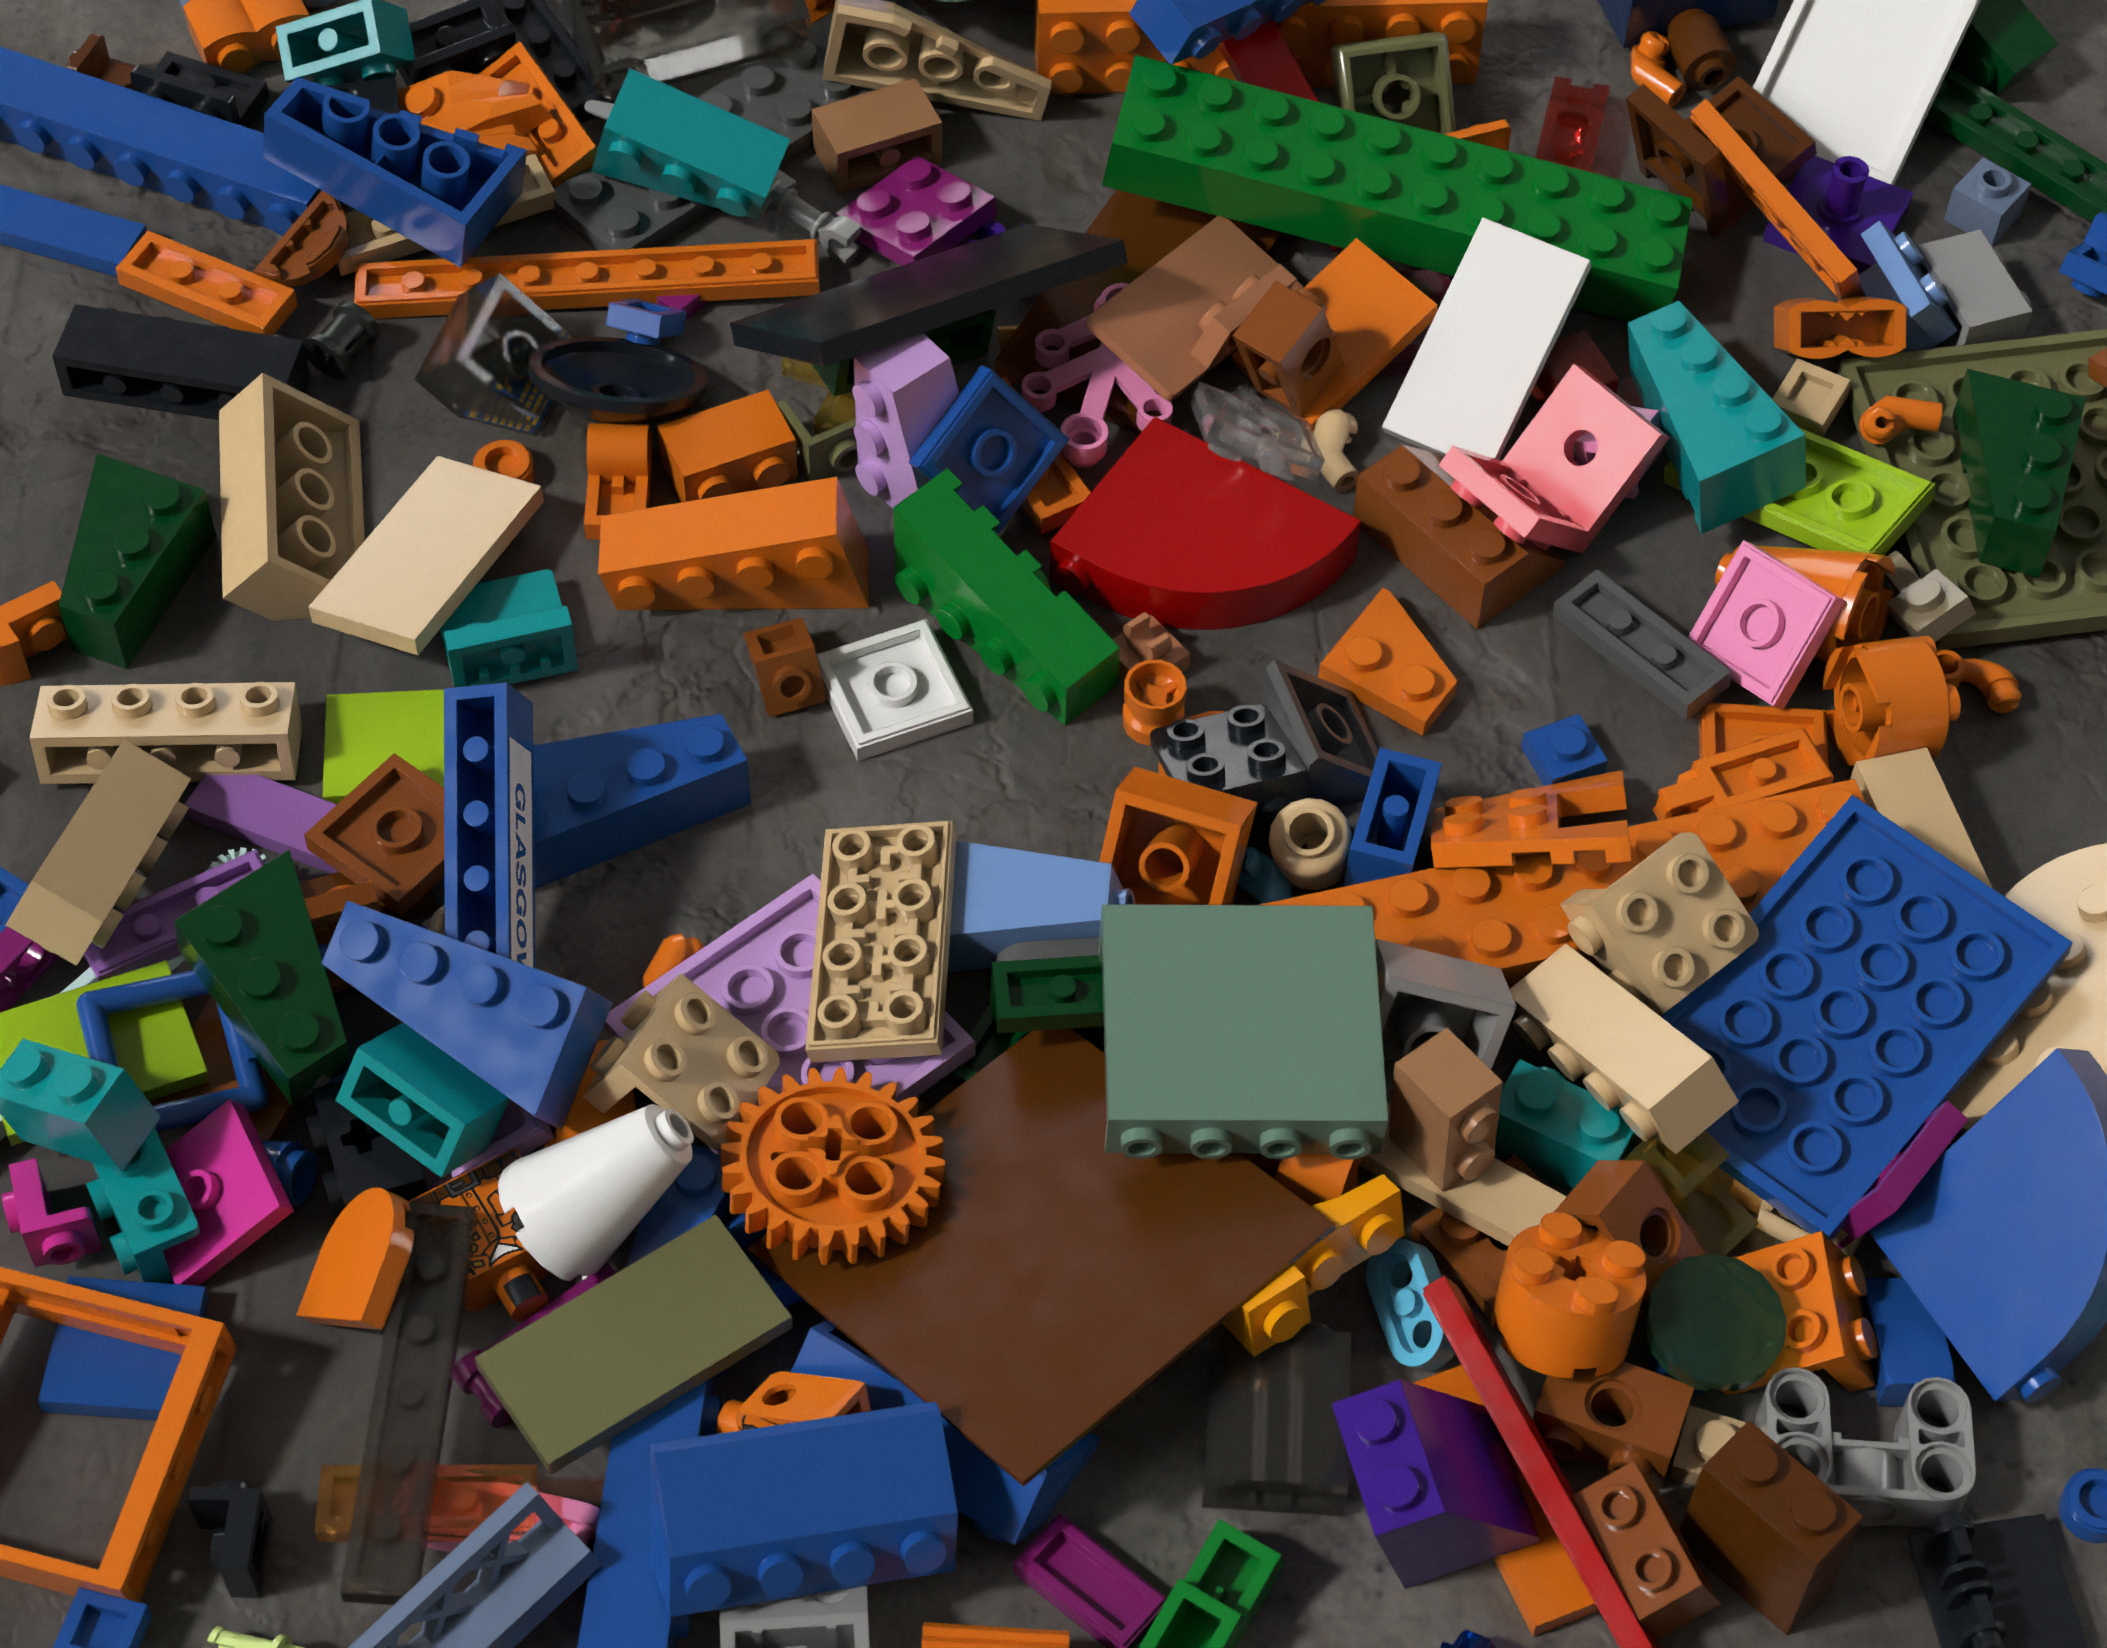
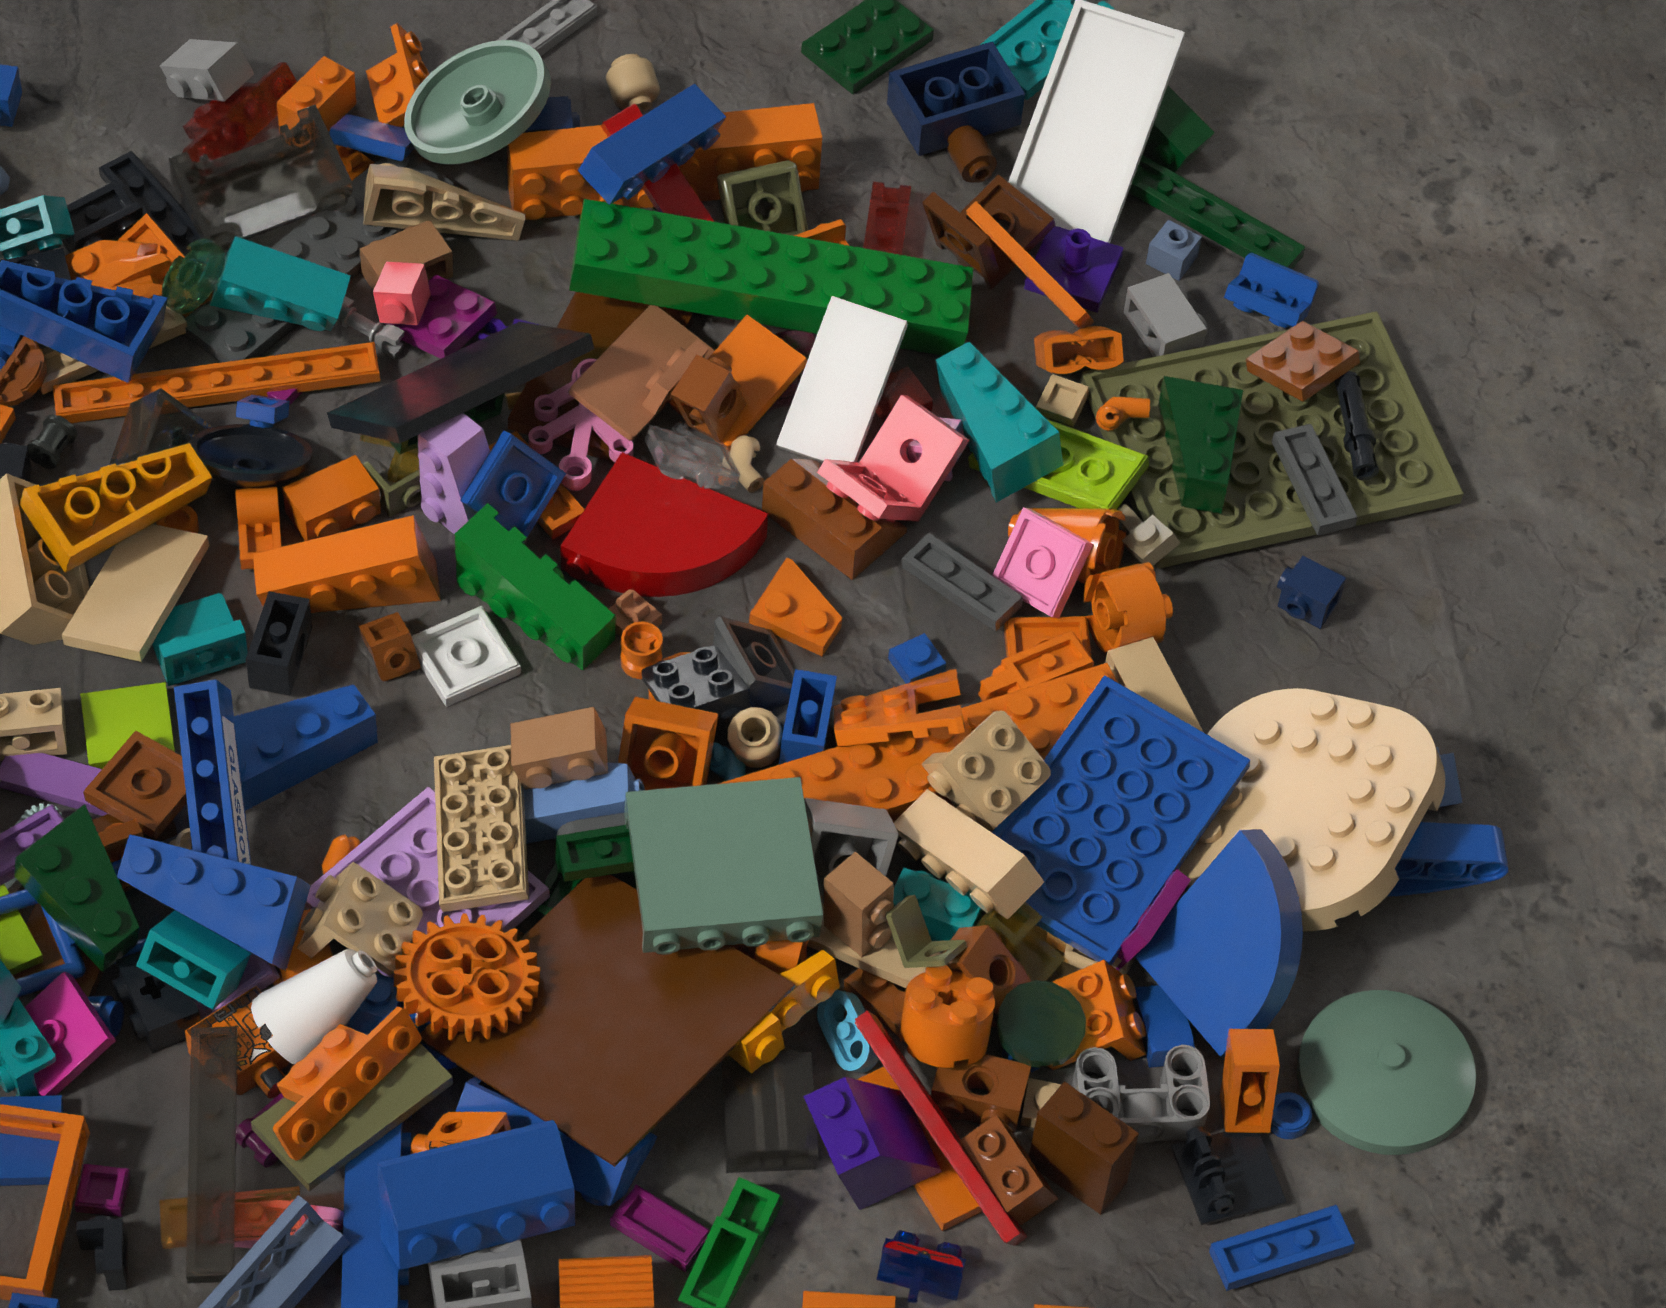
camera: 10 degrees left, 0 degrees up
(244, 1438) = (102, 1190): none -> magenta tile
(360, 1263) = (165, 1070): orange tile -> none
(410, 426) = (104, 507): none -> light orange wedge
(569, 128) = (194, 276): none -> clear green tile
(615, 1302) = (338, 1077): none -> orange bracket
(622, 646) = (279, 643): none -> black brick
(862, 172) = (401, 293): none -> coral brick
(1011, 831) = (559, 748): none -> medium nougat brick
(1526, 1170) = (914, 939): none -> olive bracket
(1649, 68) = (937, 170): orange arm -> none
(1901, 280) = (1118, 314): medium blue bracket -> none
(1989, 677) = (1194, 585): orange arm -> none
(2042, 1445) = (1249, 1080): none -> orange brick

